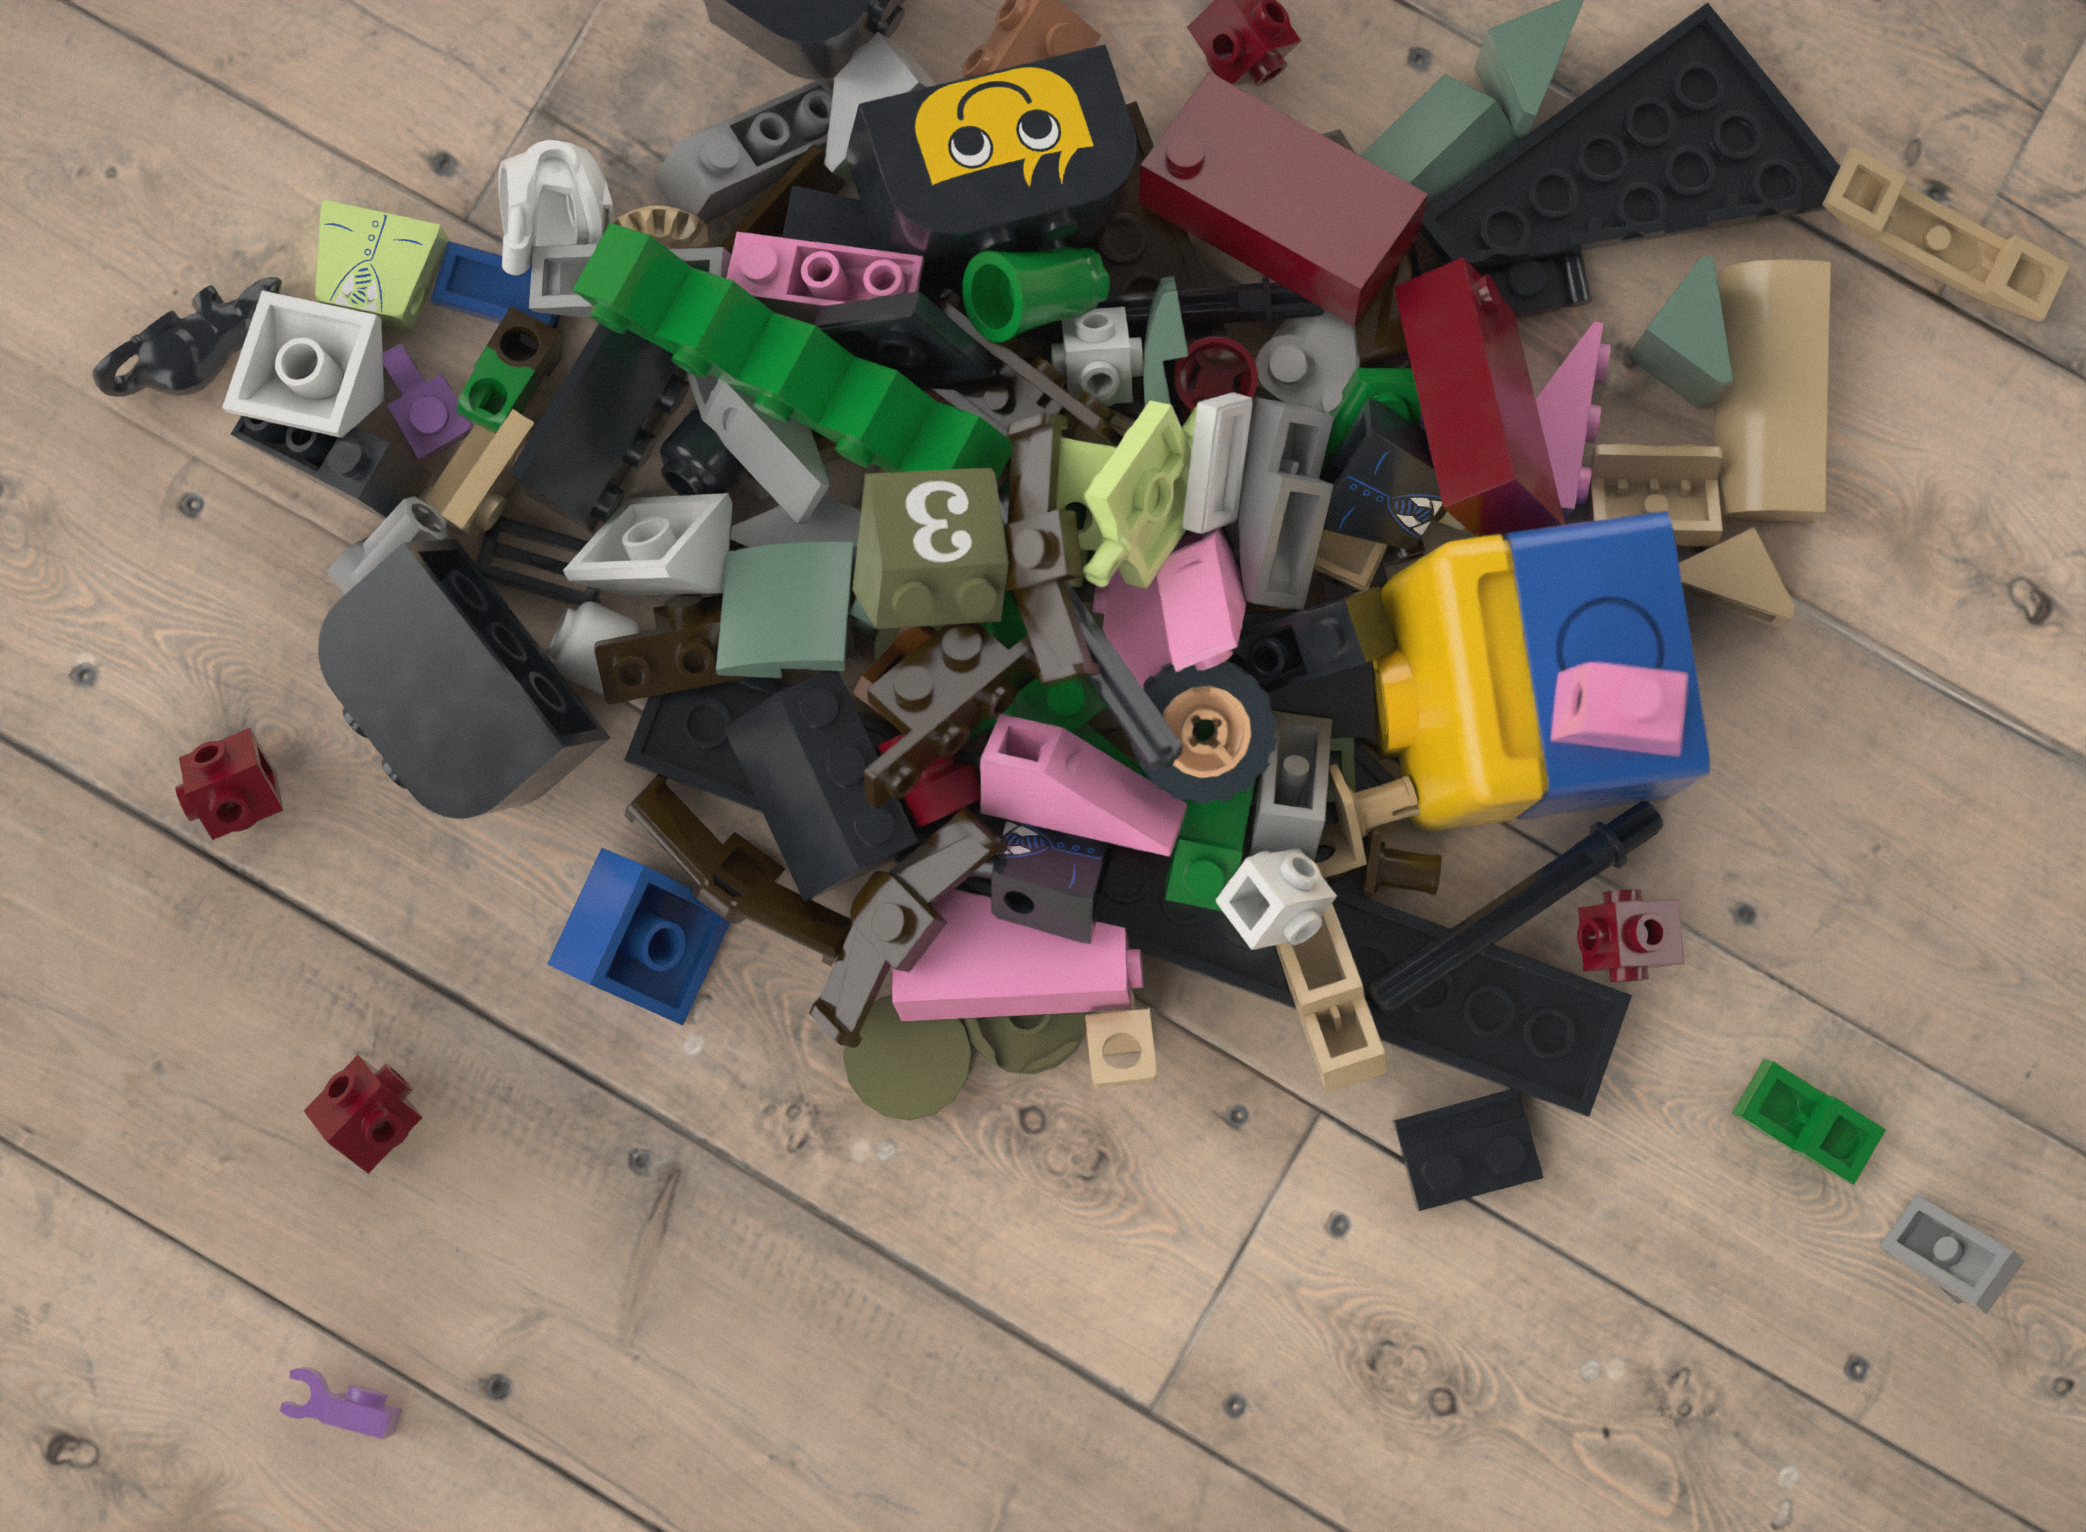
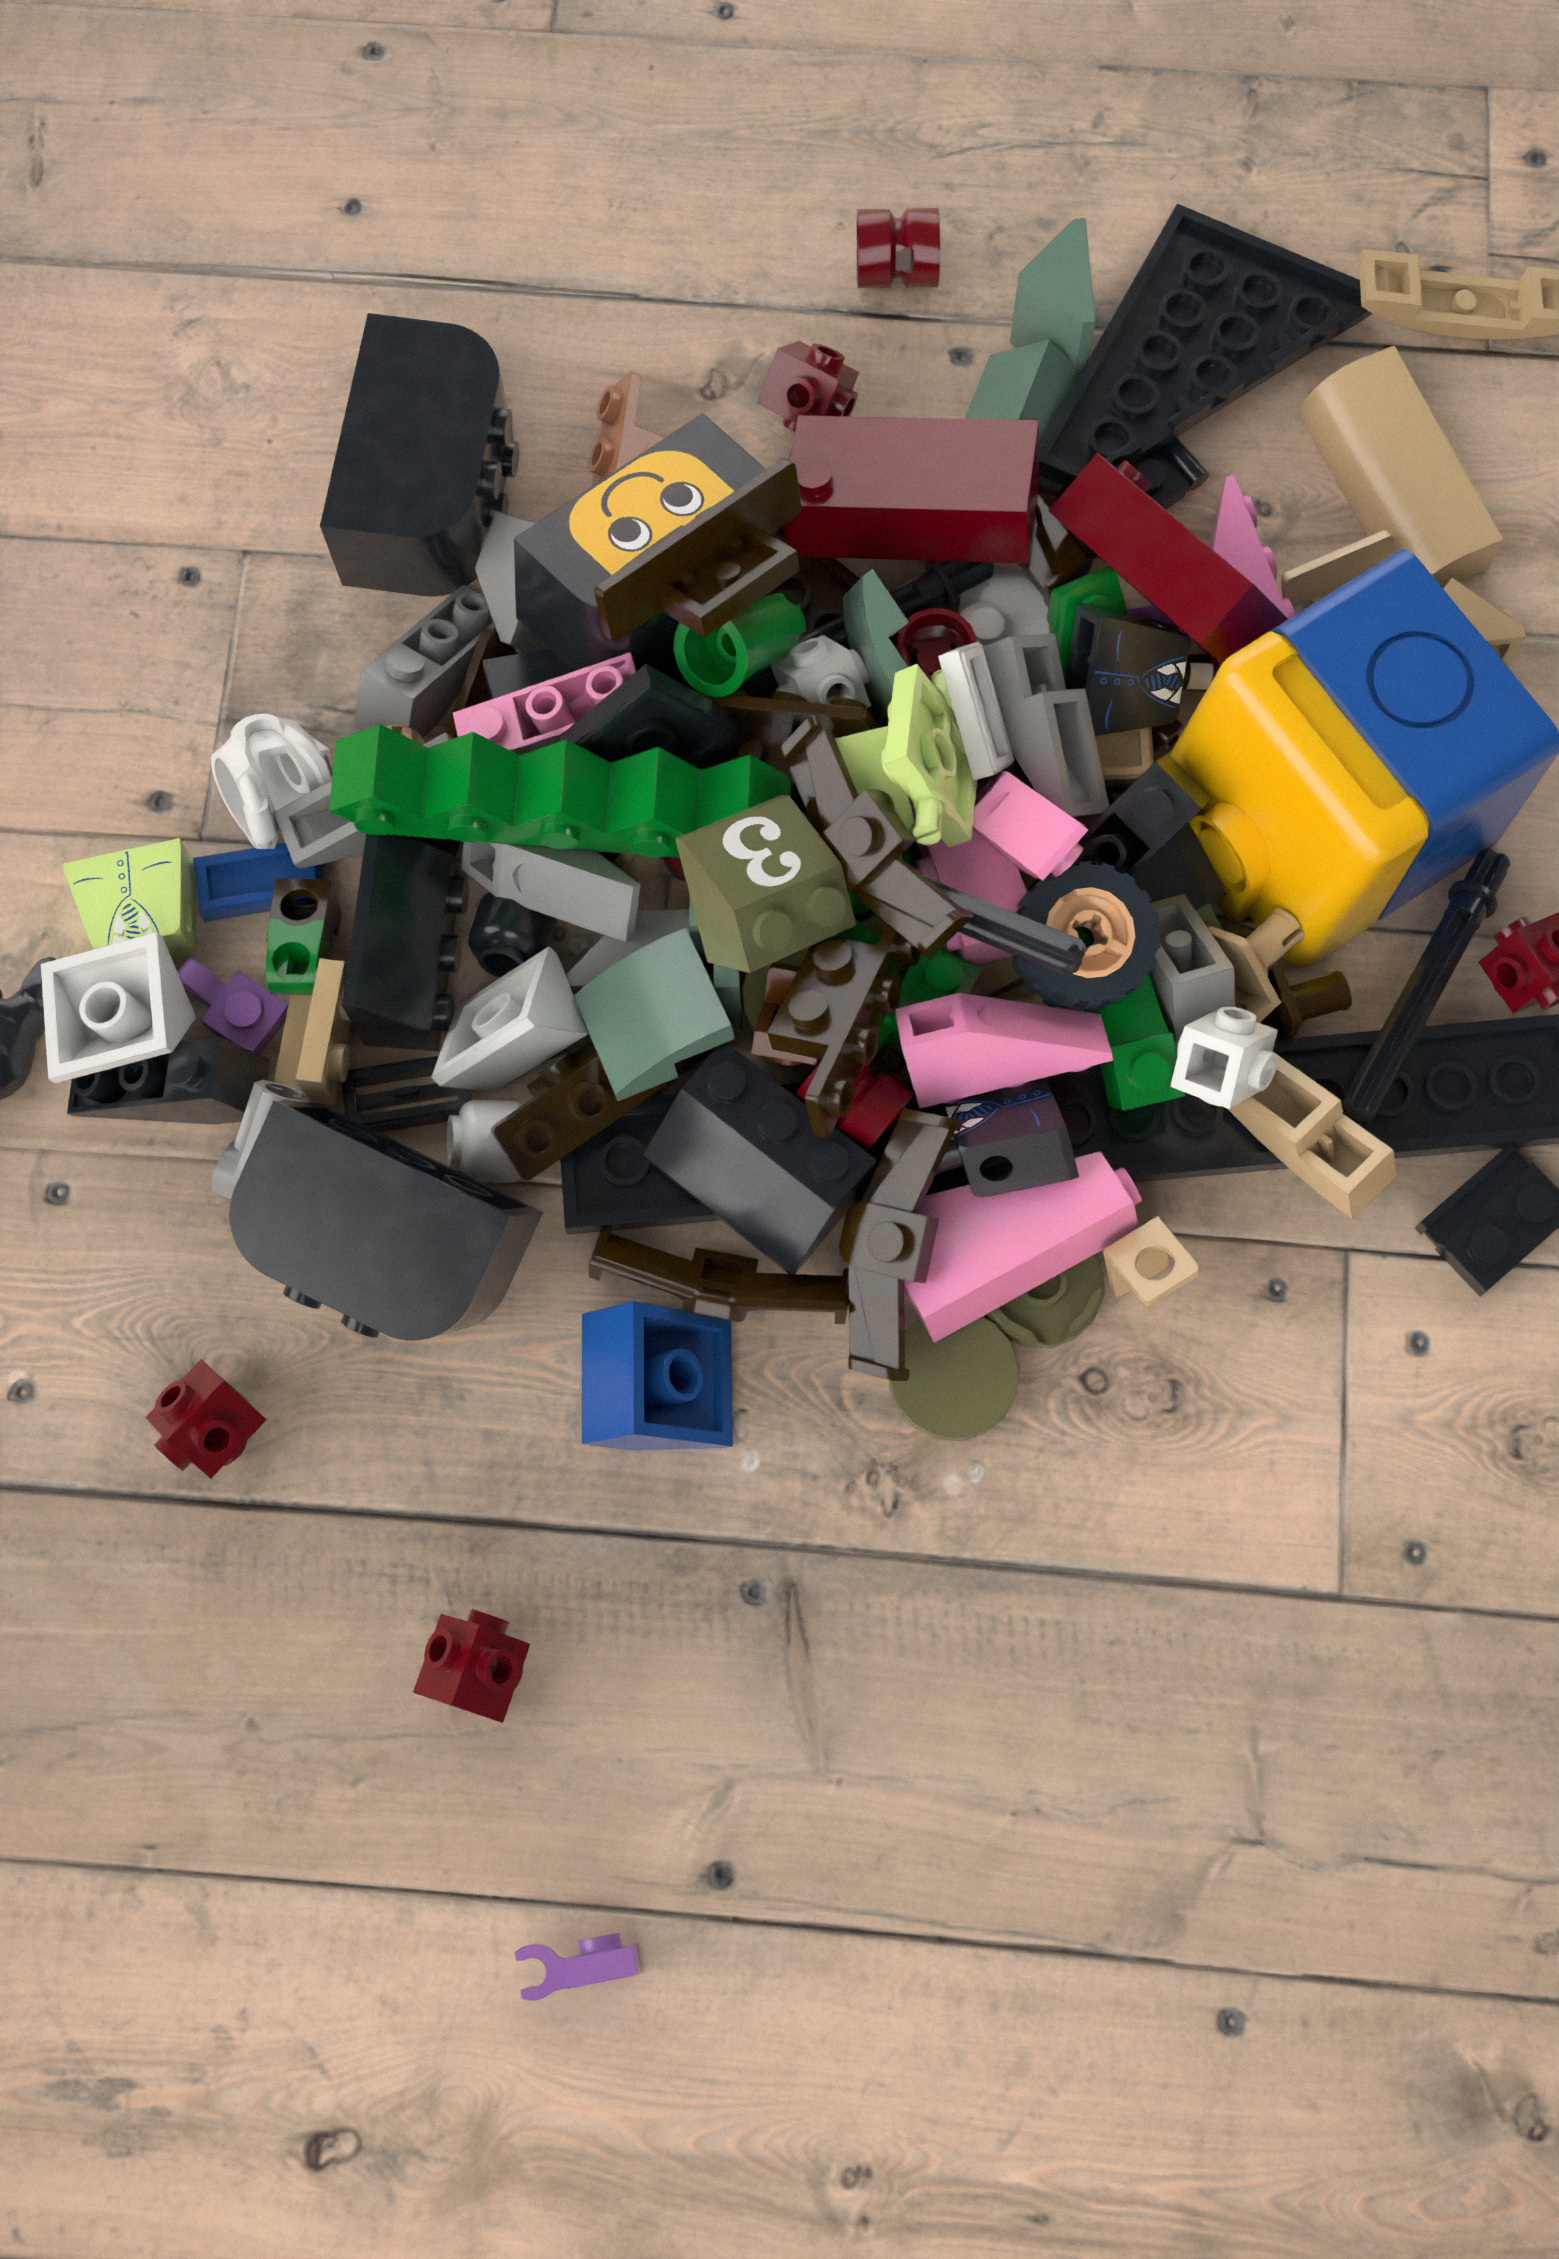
camera: 25 degrees left, 10 degrees down
(1026, 224) = (710, 564): none -> dark brown bracket
(1621, 708) = (1479, 706): bright pink torso -> none
(1688, 340) = (1315, 456): sand green slope -> none

